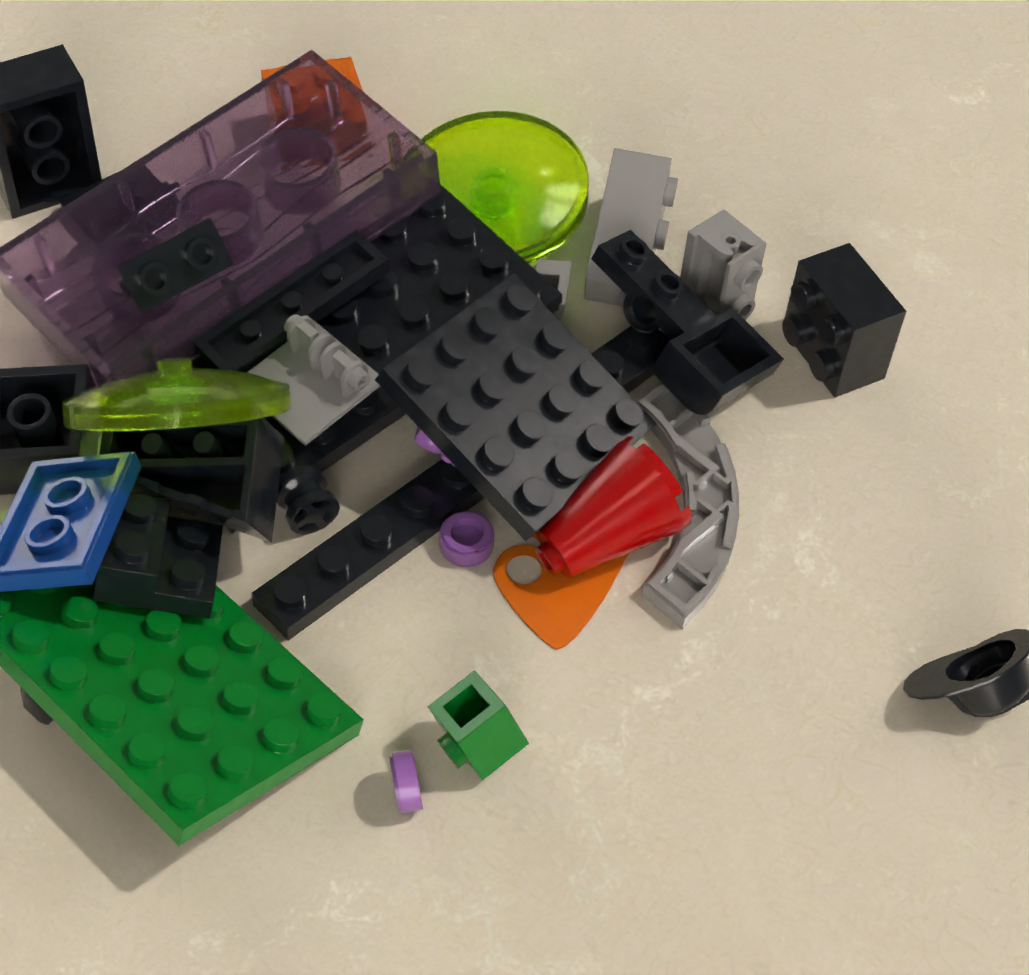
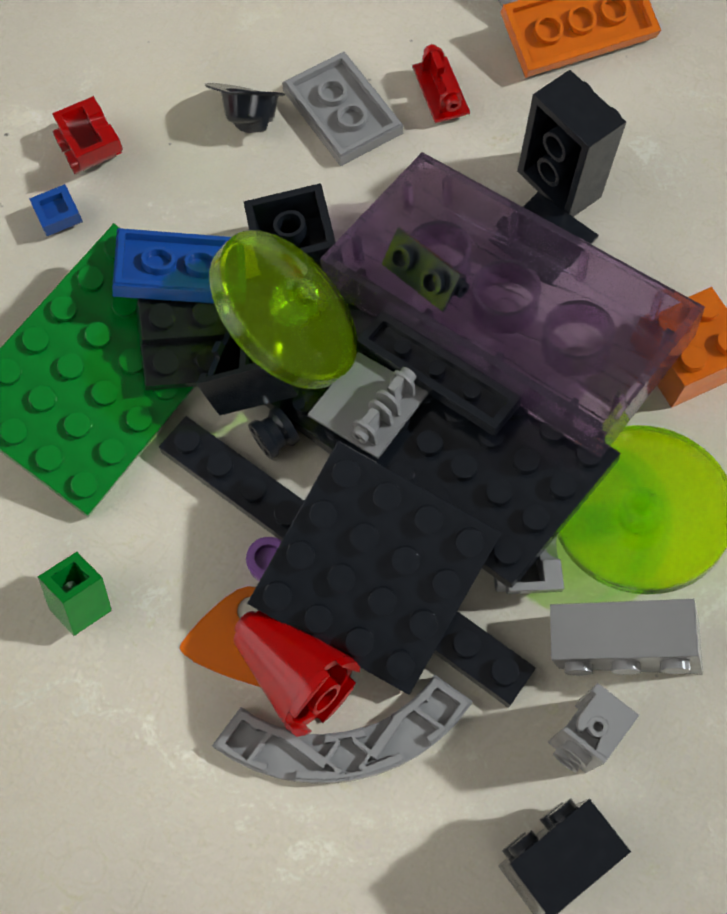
camera: 85 degrees right, 15 degrees up
(406, 781) = (36, 554): medium lavender tile -> none
(707, 353) = (491, 734): black plate -> none

